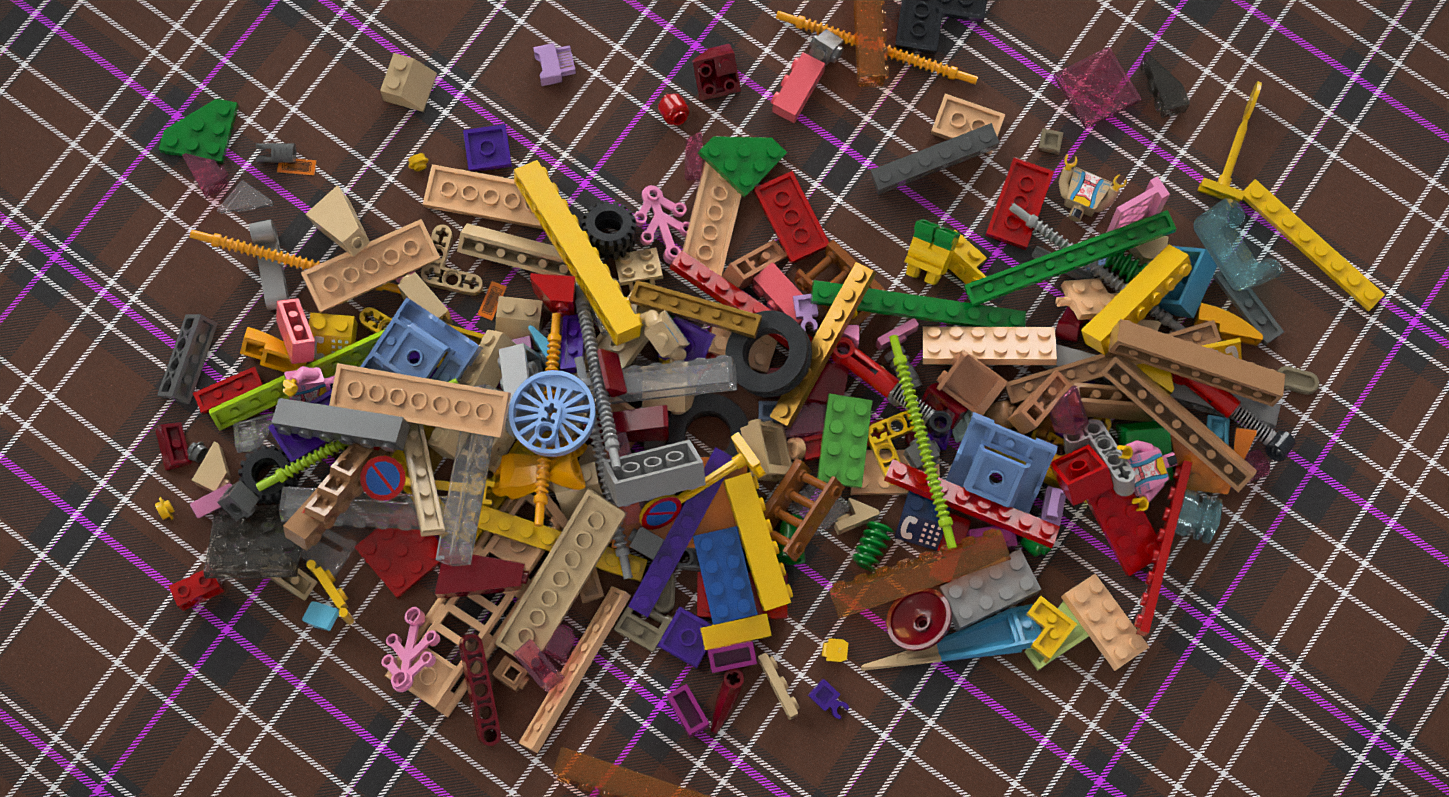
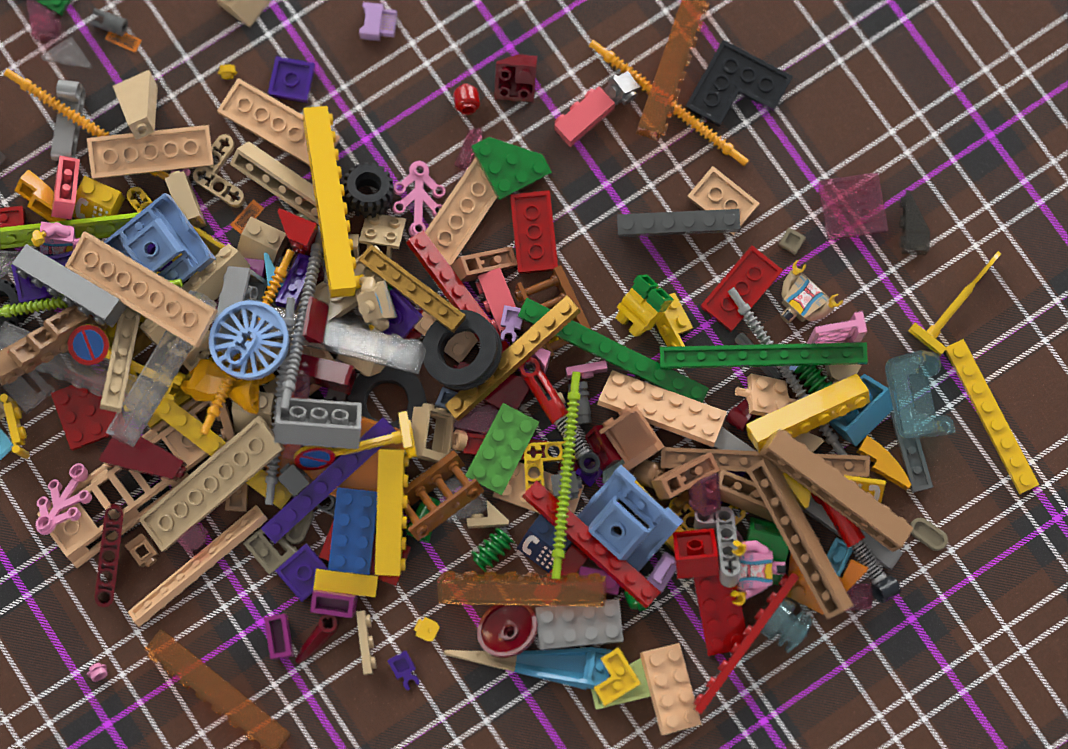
camera: 25 degrees right, 5 degrees up
(538, 665) = (166, 552): clear pink slope -> none

